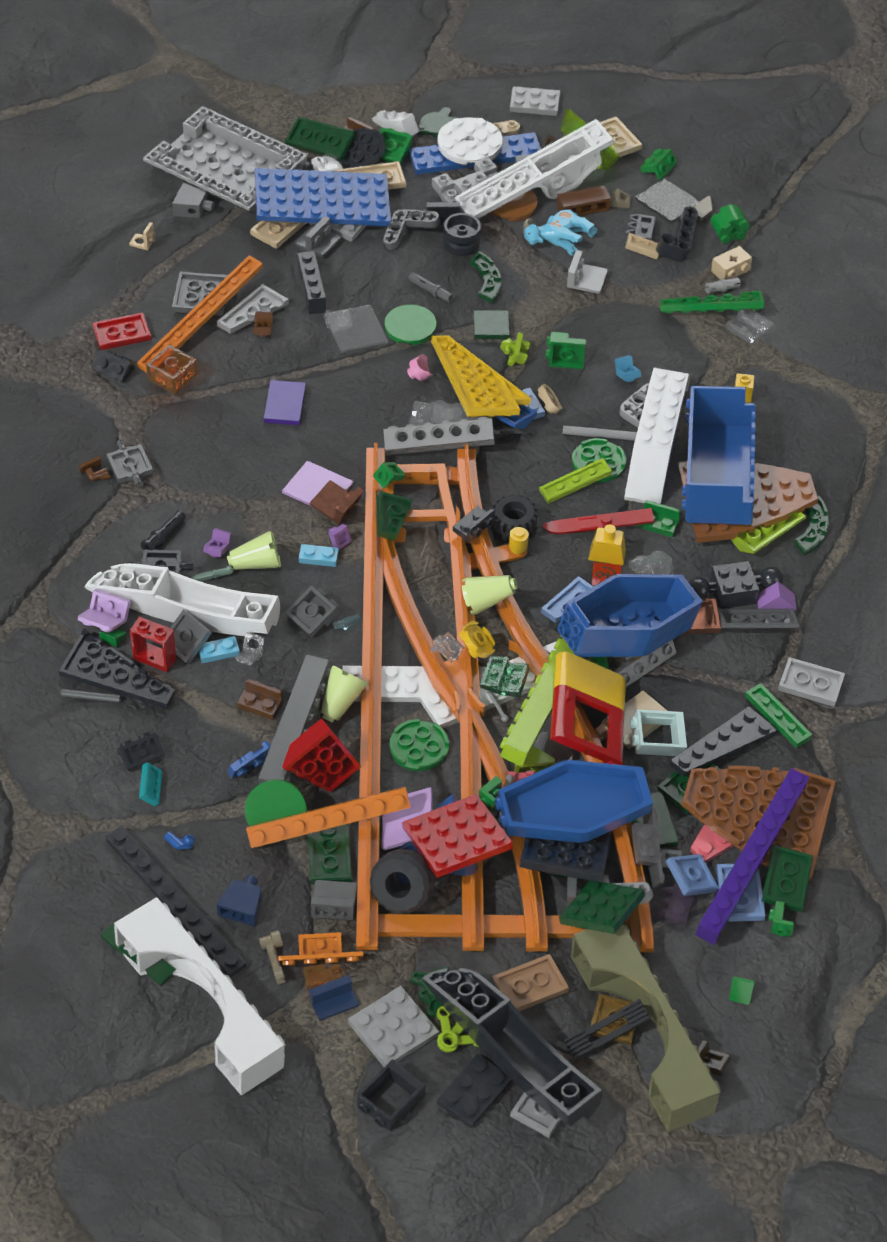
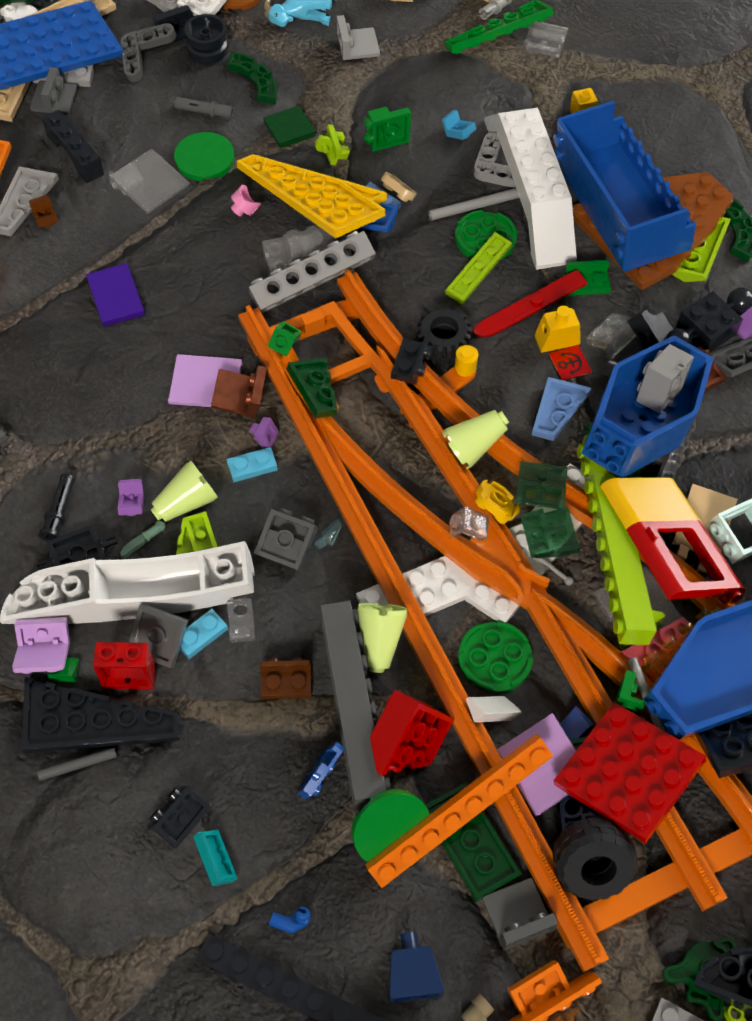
camera: 25 degrees left, 10 degrees up
(251, 582) = (195, 534): none -> lime wing
(392, 772) = (492, 709): none -> white slope
(518, 642) = (541, 485): none -> clear green slope
(653, 601) = (664, 378): none -> light grey brick
(678, 566) = (650, 328): none -> black brick

